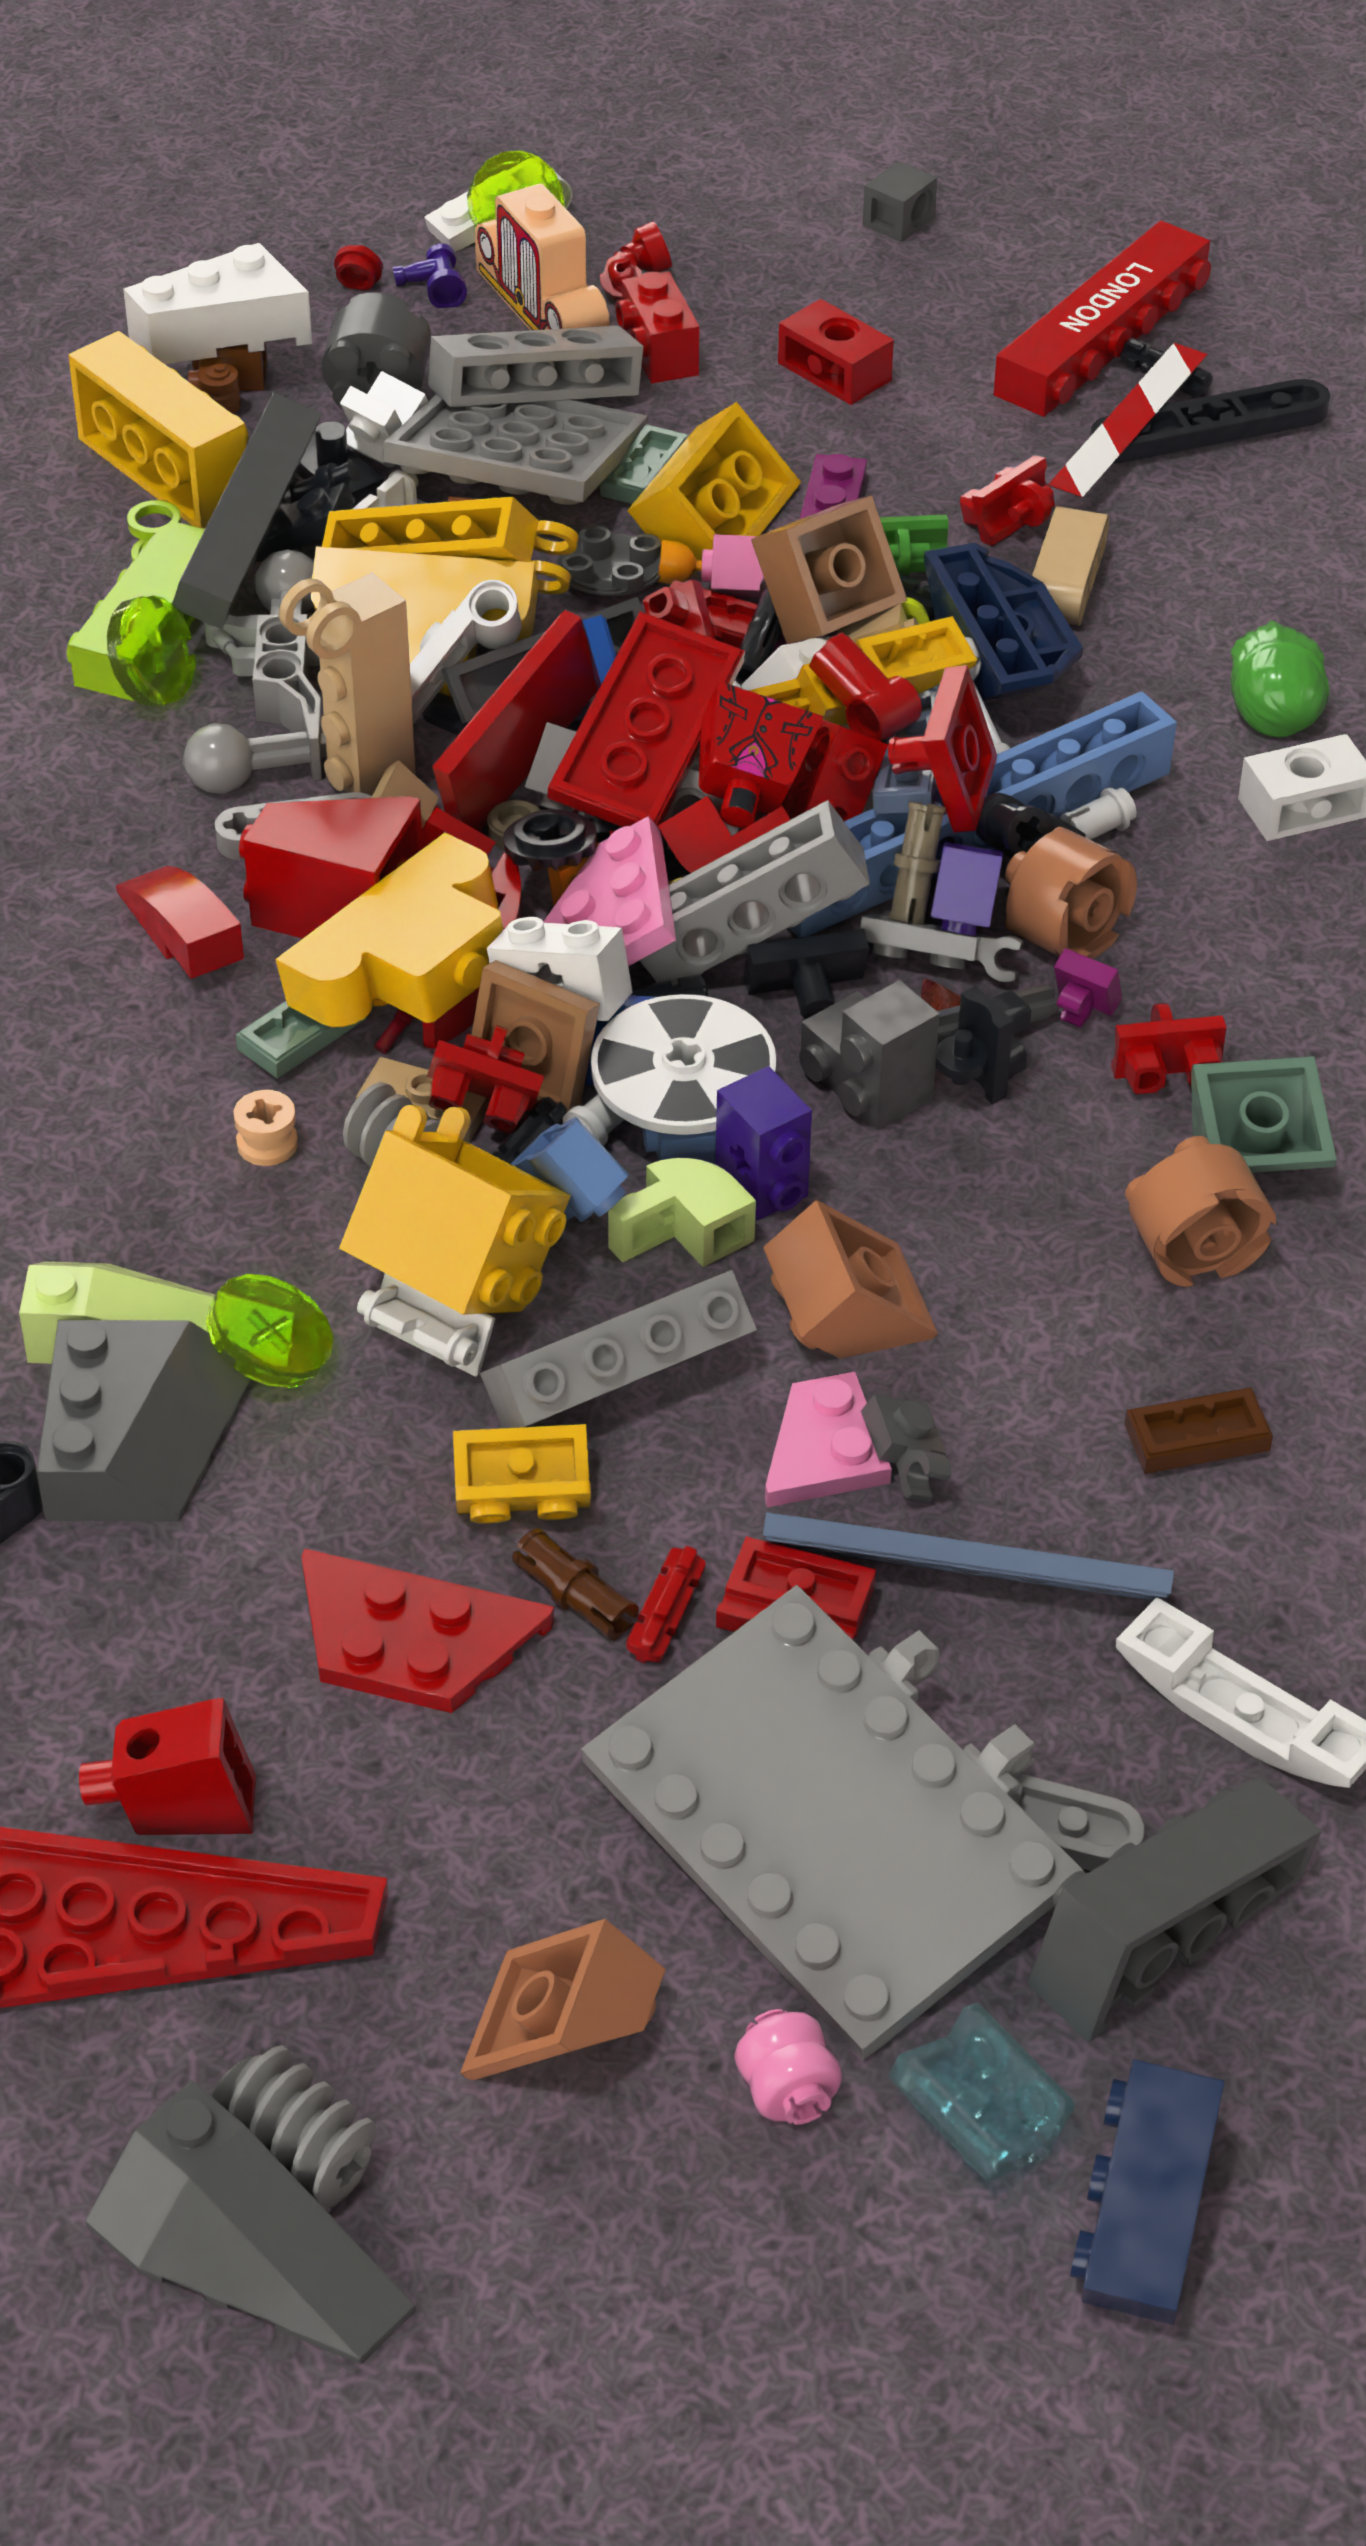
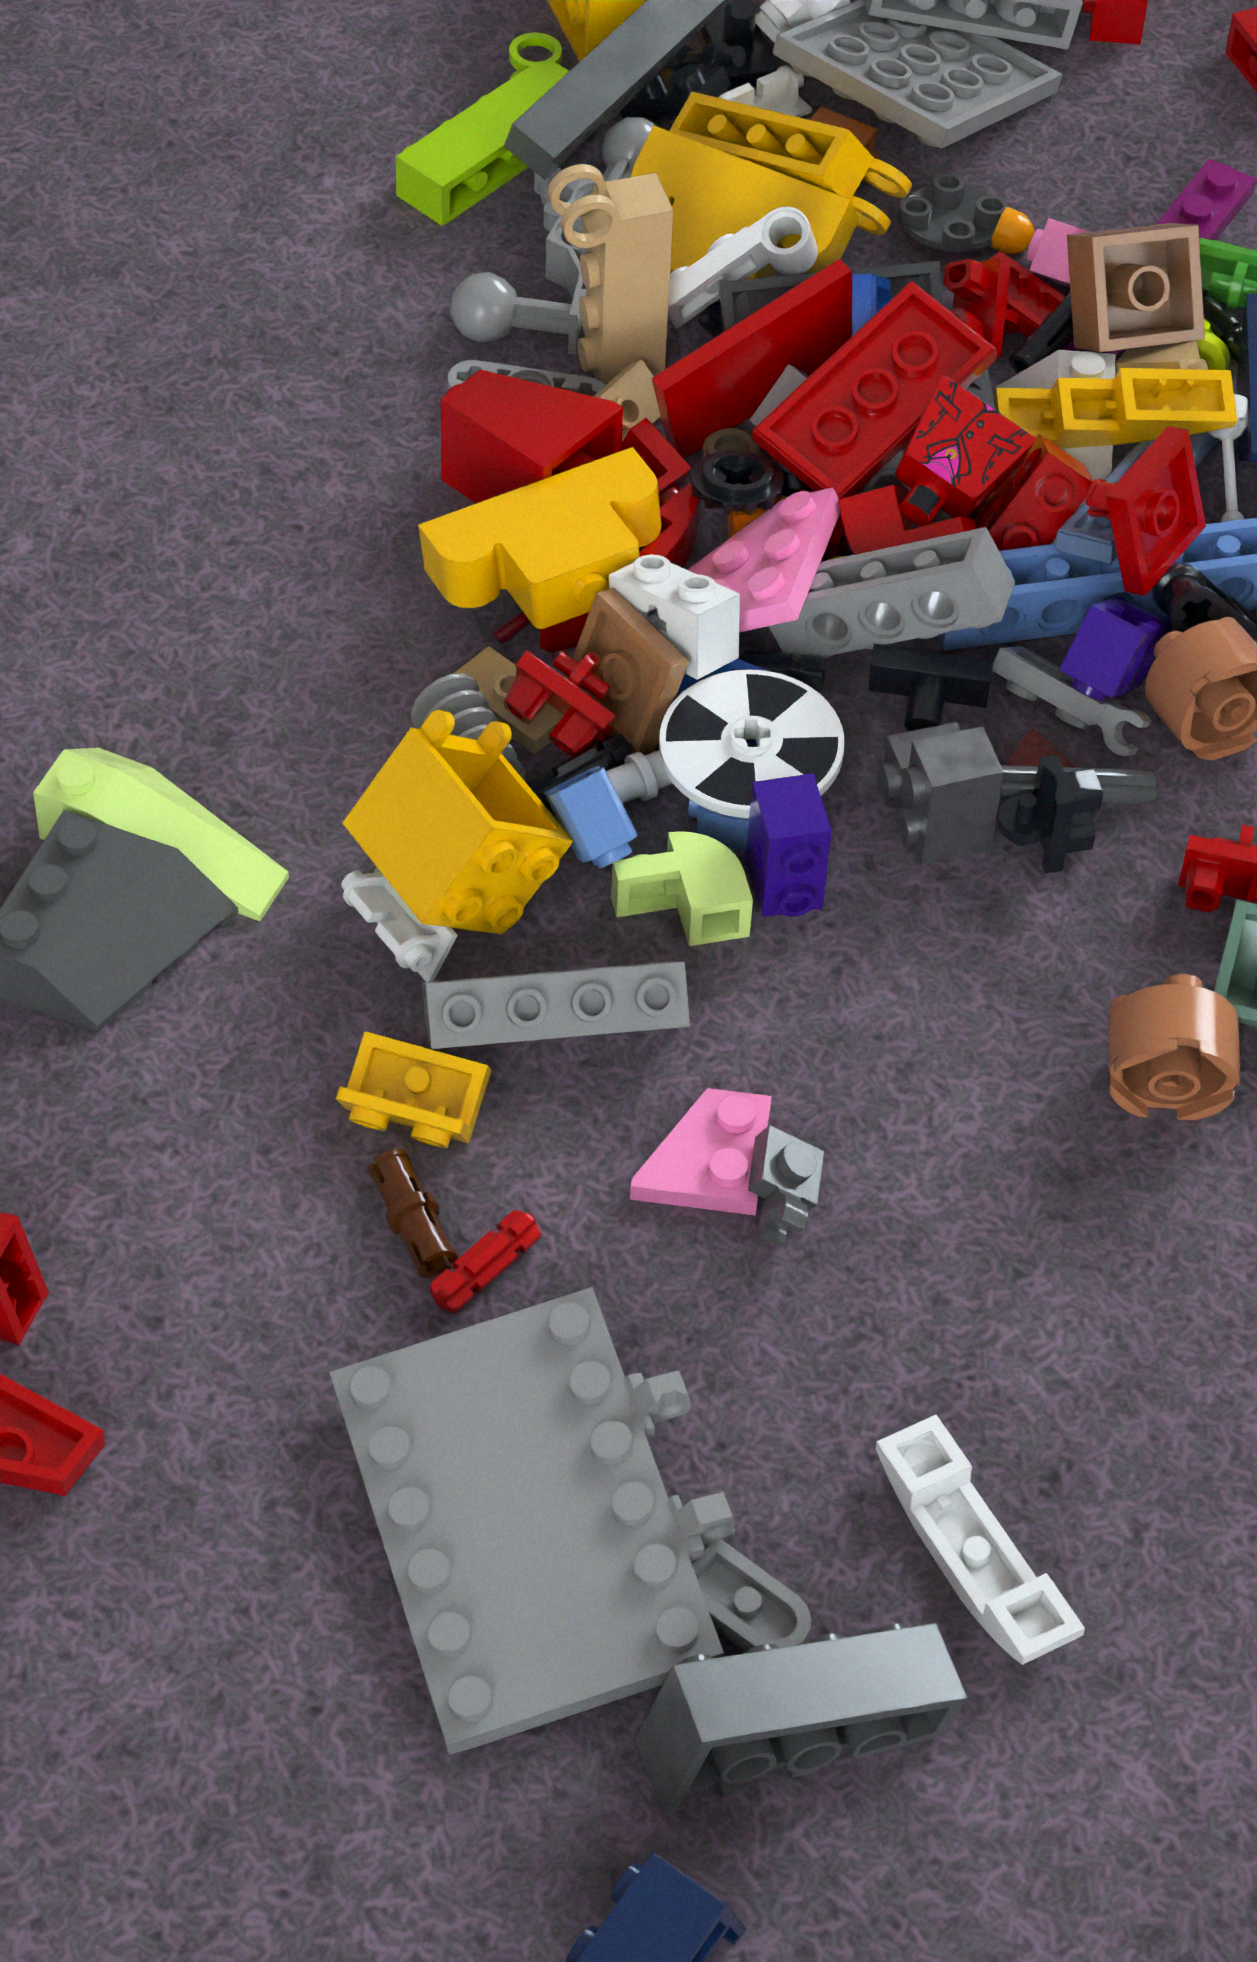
camera: 20 degrees right, 5 degrees up
(150, 650) = (467, 183): clear neon green tile -> none
(184, 919) = (375, 457): red slope -> none
(265, 1127) = (351, 682): light nougat wheel -> none
(269, 1330) = (254, 879): clear neon green tile -> none
(285, 1039) = (411, 602): sand green plate -> none
(411, 1632) = (245, 1207): red wing -> none
(564, 1998) = (202, 1600): nougat slope -> none
(641, 463) = (1036, 125): sand green plate -> none
(717, 484) = (1091, 167): yellow slope -> none
(770, 1570) = (631, 1296): red plate -> none
(788, 2066) = (368, 1736): bright pink piece -> none
(846, 1285) = (806, 1010): nougat slope -> none
(872, 701) = (1108, 434): red piece -> none
(917, 862) = (1073, 606): dark tan pin -> none
(968, 1557) = (783, 1314): sand blue tile -> none
(984, 2094) = (529, 1831): clear light blue bracket -> none
(1085, 986) = (1187, 786): magenta tile -> none
(1198, 1430) = (1069, 1263): reddish brown plate -> none

